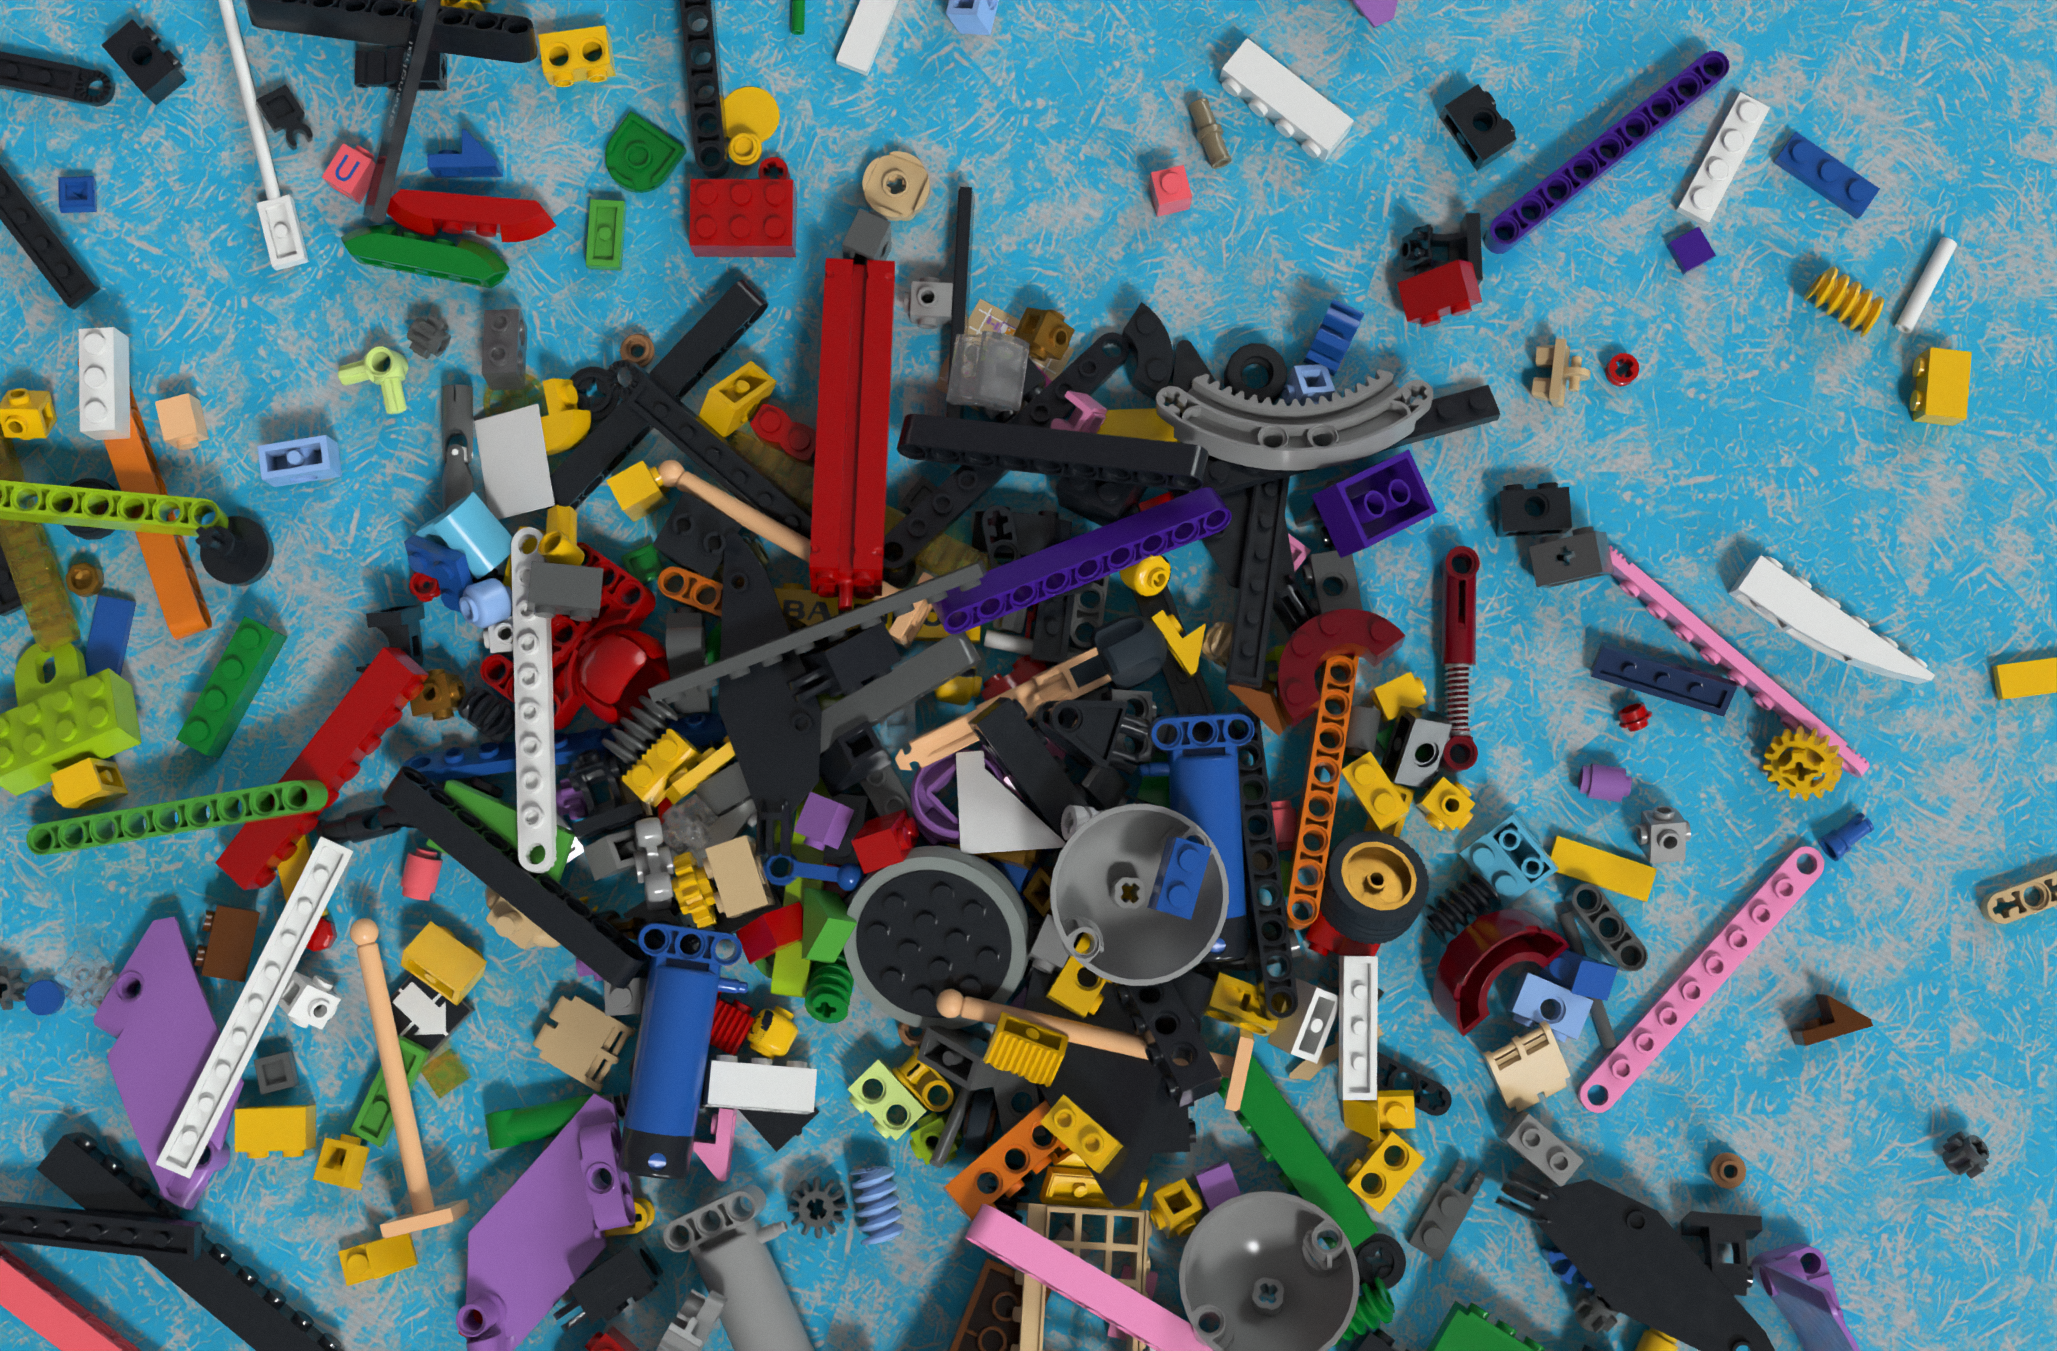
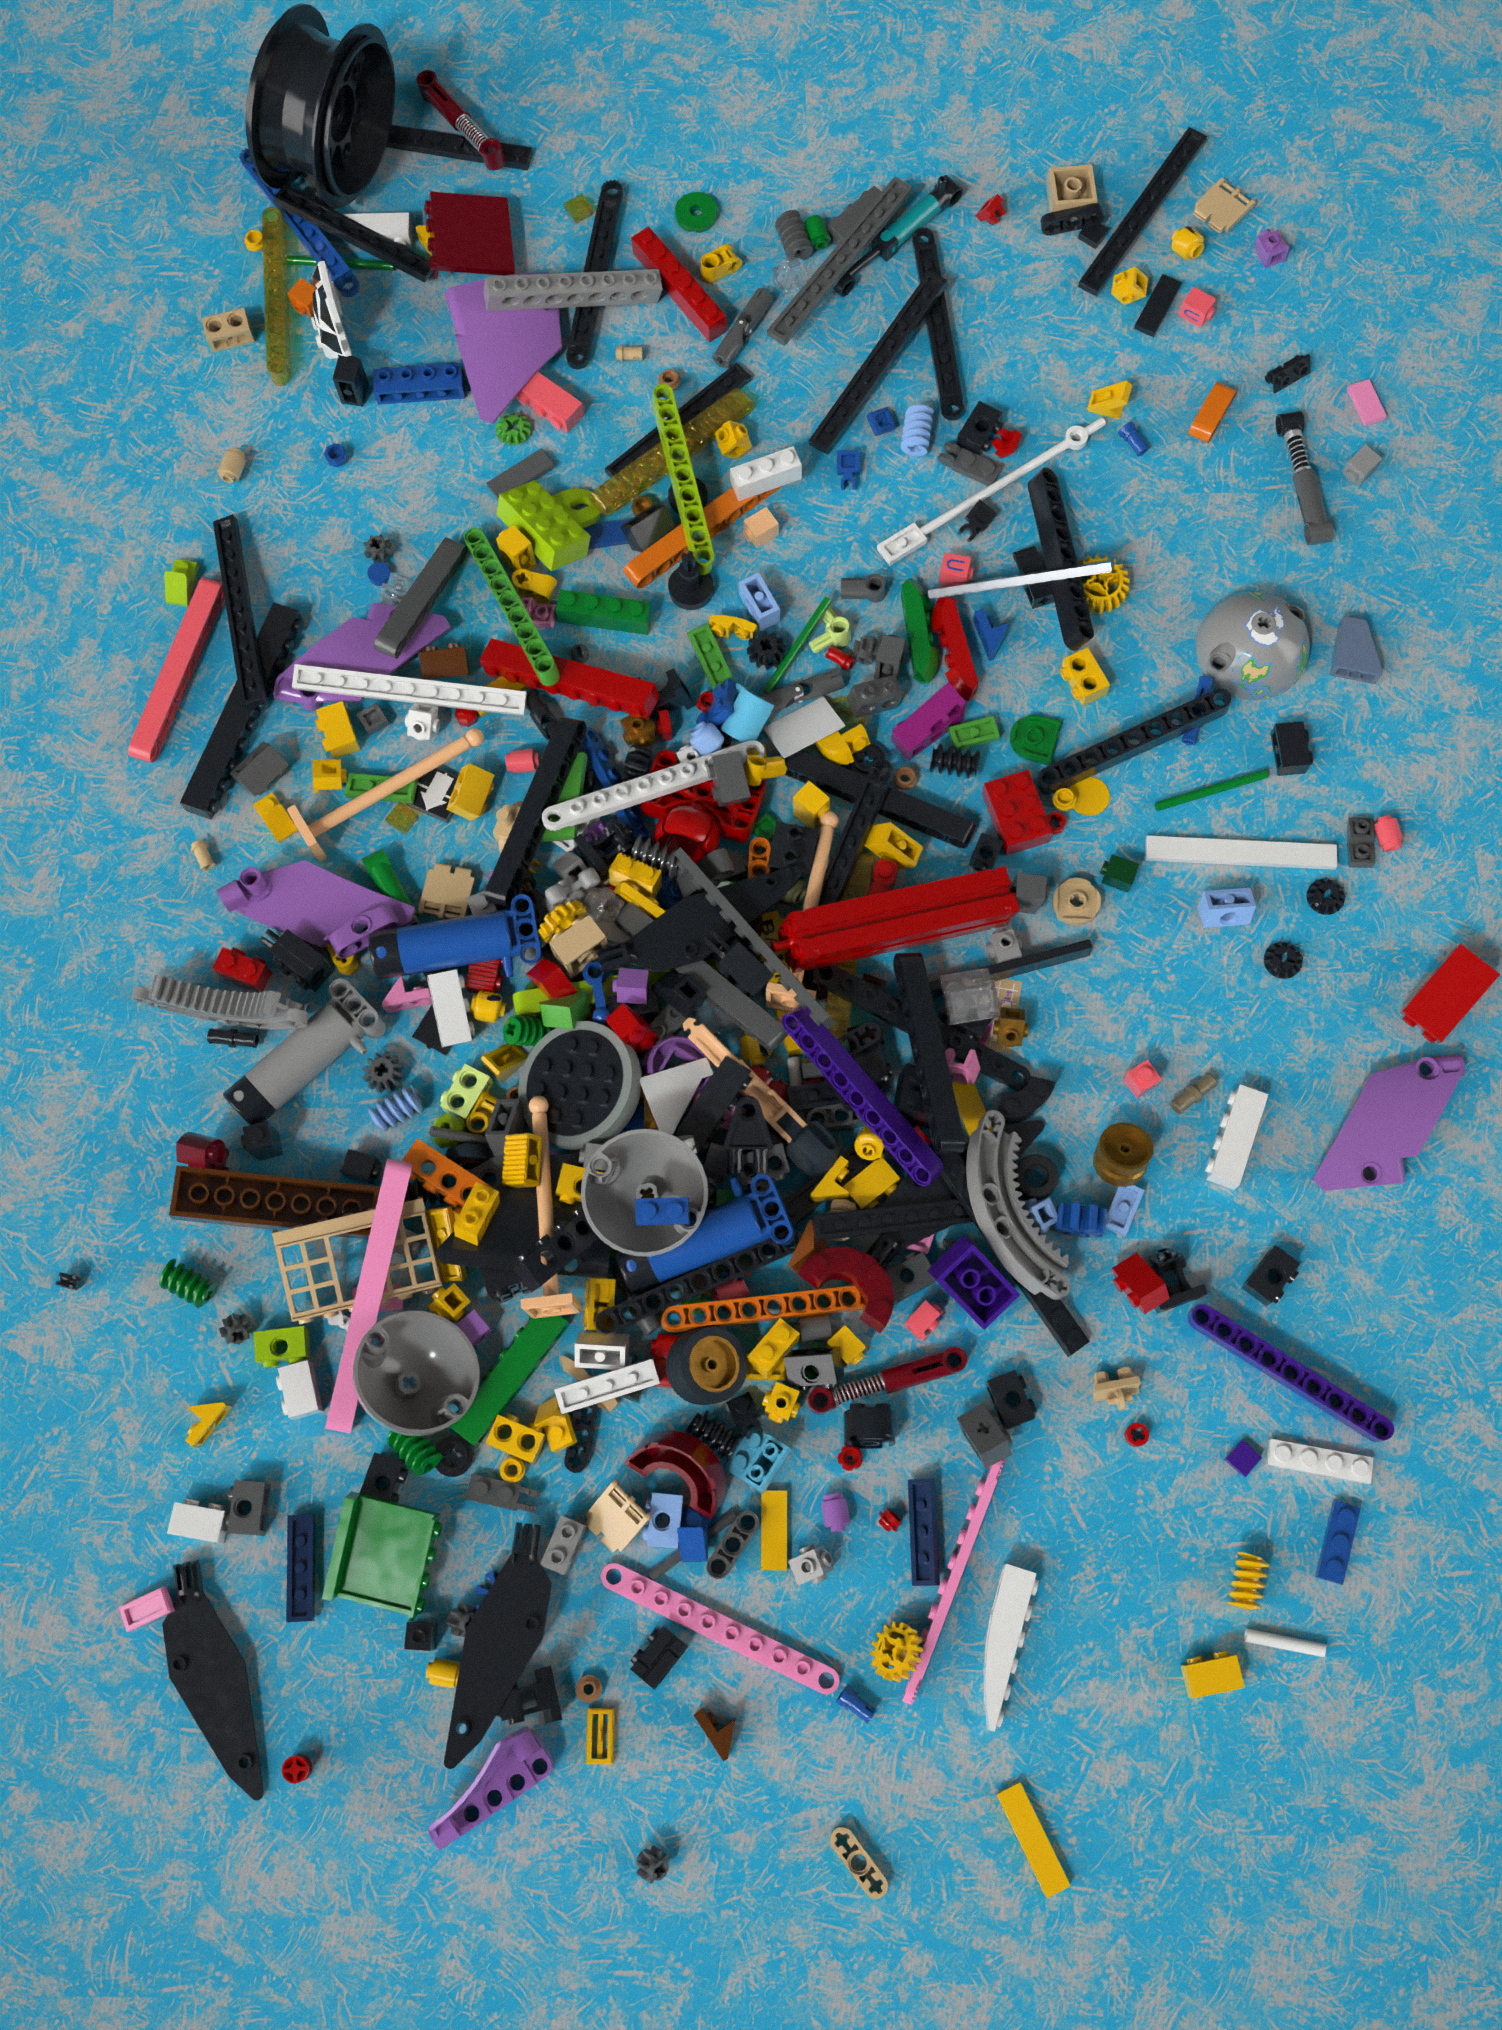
camera: 75 degrees right, 10 degrees down
(111, 149) = (917, 430): none -> light blue piece
(113, 946) = (420, 598): none -> dark grey beam
(122, 580) = (648, 527): none -> black brick
(130, 265) = (848, 465): none -> blue plate
(155, 772) = (535, 586): none -> yellow piece
(181, 29) = (1007, 443): none -> red tile
(193, 94) = (970, 464): none -> dark grey hinge
(198, 779) = (542, 614): none -> bright pink slope
(282, 750) = (574, 654): none -> dark grey hinge
(297, 1261) = (259, 769): none -> dark grey brick
(317, 522) = (725, 626): none -> yellow slope
(329, 313) = (861, 588): none -> dark grey piece
(357, 558) = (709, 655): none -> bright green plate
(385, 430) = (798, 644): none -> green piece
(385, 466) = (762, 643): none -> black gear
(426, 377) = (845, 660): none -> red pin
(440, 657) = (663, 725): none -> red plate
(455, 307) = (889, 656): none -> dark grey brick
(569, 289) = (929, 722): none -> magenta wedge
(638, 273) = (955, 761): none -> black piece
(777, 270) = (986, 844): none -> black brick
(859, 1032) = (504, 1061): none -> yellow slope
(876, 115) = (1119, 872): none -> dark green brick
(943, 1276) = (361, 1167): none -> black brick
(1196, 591) = (872, 1184): none -> yellow brick
(1265, 251) = (1122, 1154): none -> pearl gold wheel
(1330, 277) = (1123, 1209): none -> light blue plate
(1395, 585) = (924, 1320): none -> coral brick
(1427, 1194) = (504, 1467): none -> yellow plate
(1441, 857) = (745, 1413): none -> black plate
(1514, 703) = (869, 1426): none -> black brick
(1539, 731) = (850, 1451): none -> red plate
(1717, 1068) = (659, 1656): none -> black brick
(1759, 1164) = (610, 1748): none -> yellow tile

